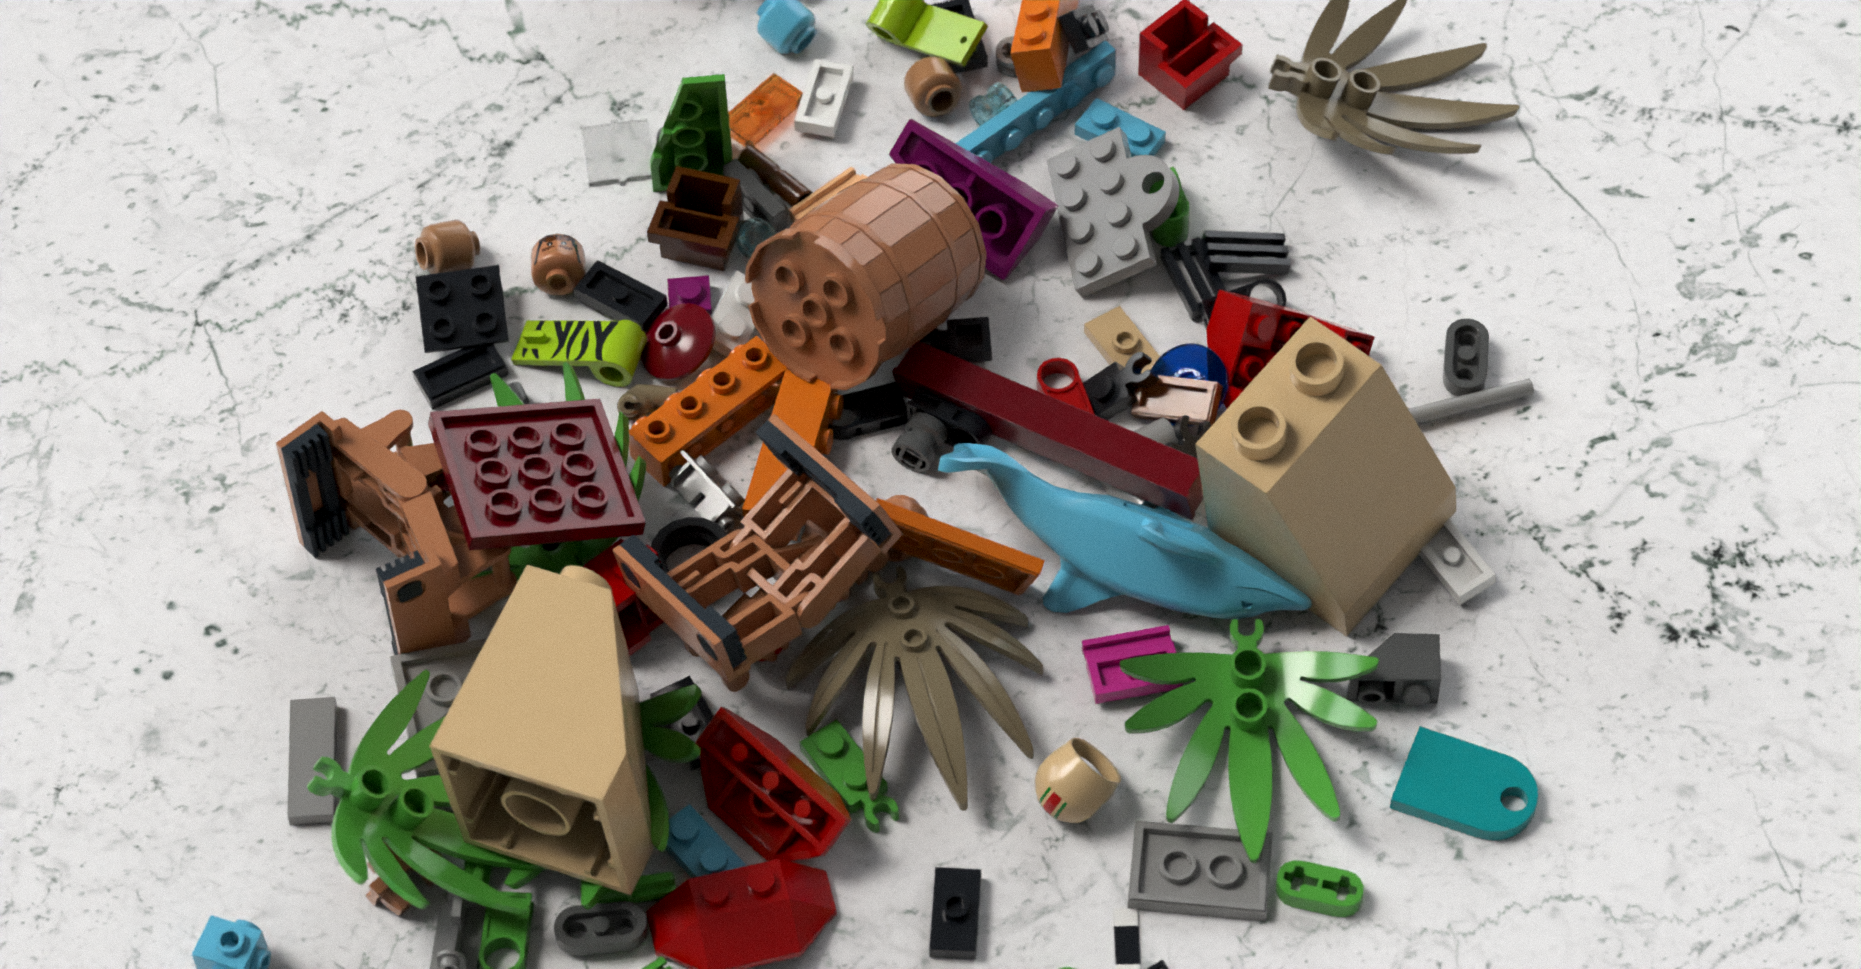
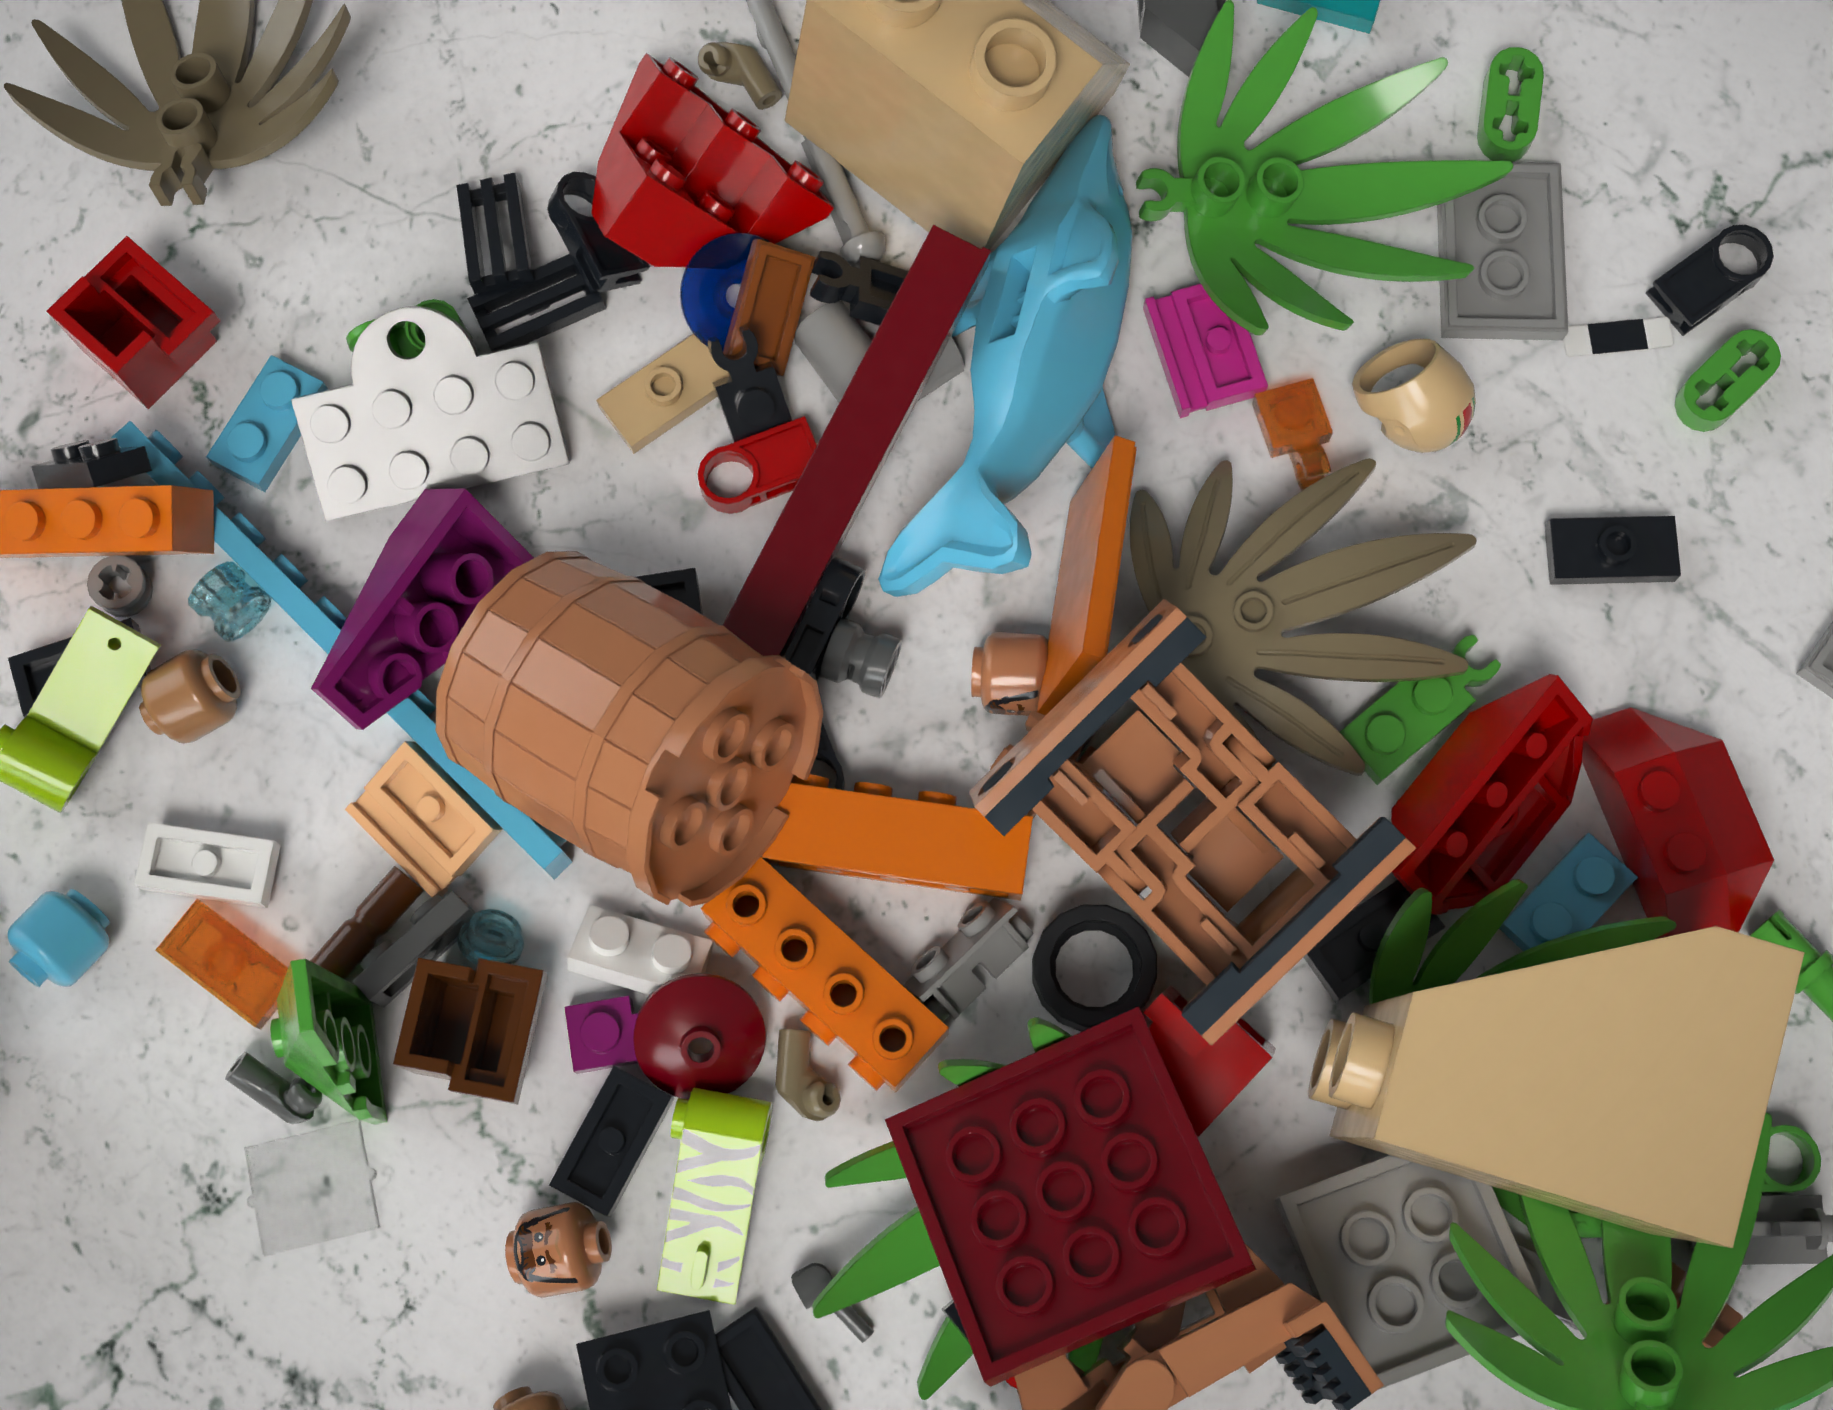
camera: 95 degrees left, 20 degrees up
(1067, 718) = (1296, 425): none -> clear orange plate

